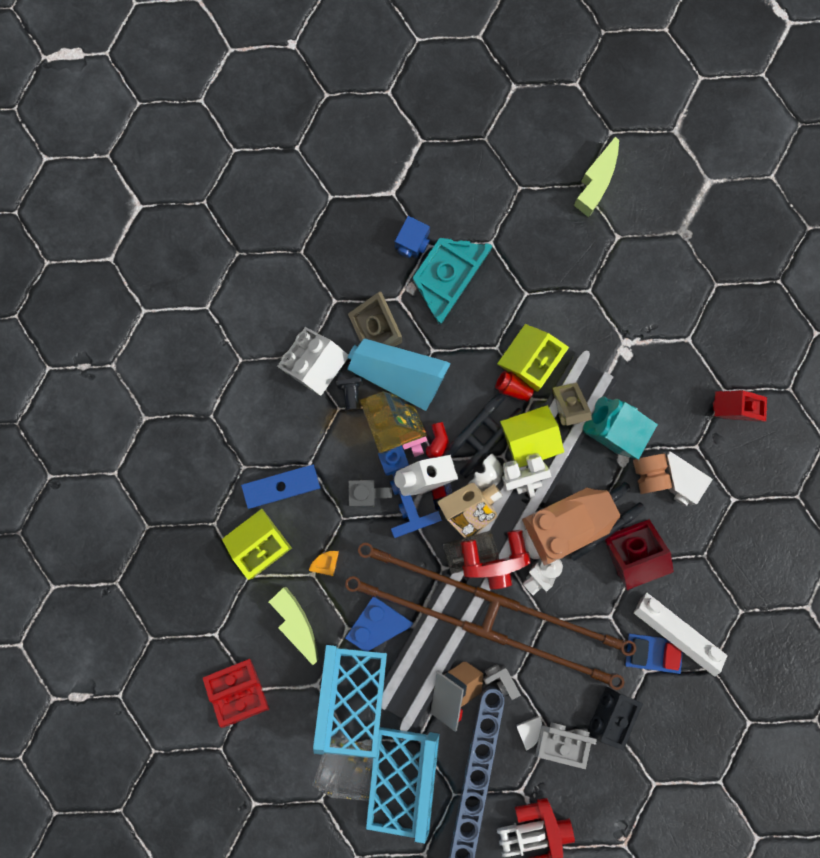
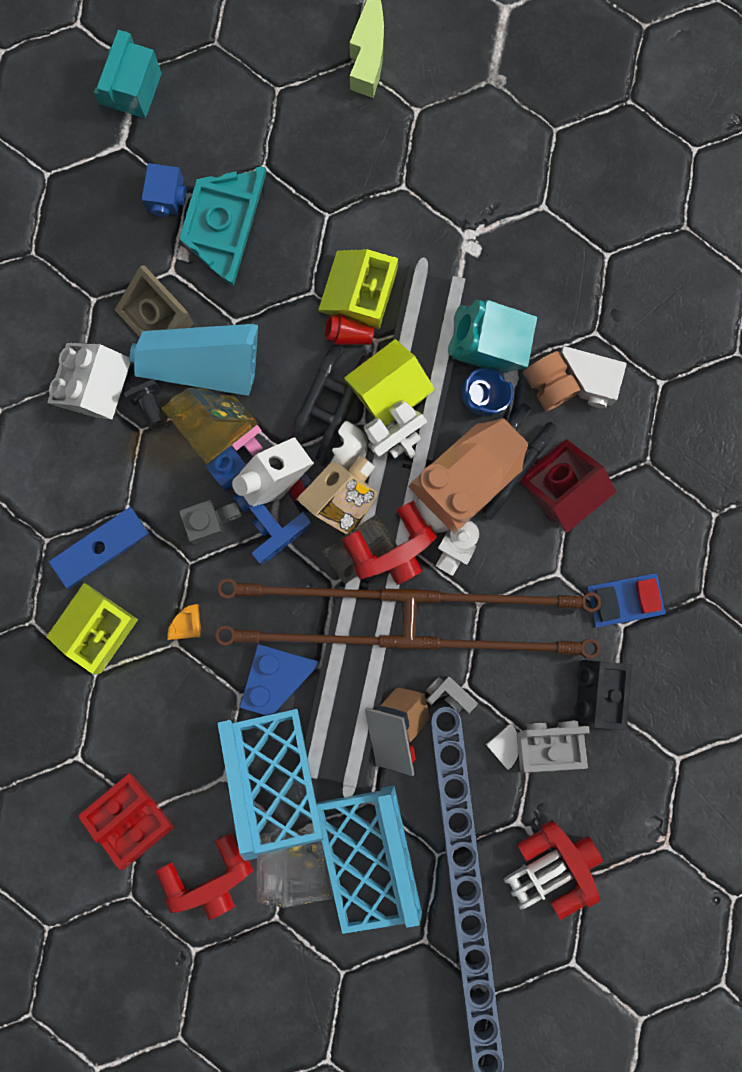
camera: 20 degrees left, 0 degrees up
(281, 767) = (213, 894): none -> red connector
(296, 626) = (172, 710): yellowish green slope -> none
(414, 146) = (128, 77): none -> teal plate
(440, 442) = (279, 429): red arm -> none
(571, 404) = (424, 328): dark tan slope -> none
(601, 466) = (486, 392): none -> blue hair
(680, 634) = (650, 565): white plate -> none
(740, 405) = (631, 264): red slope -> none

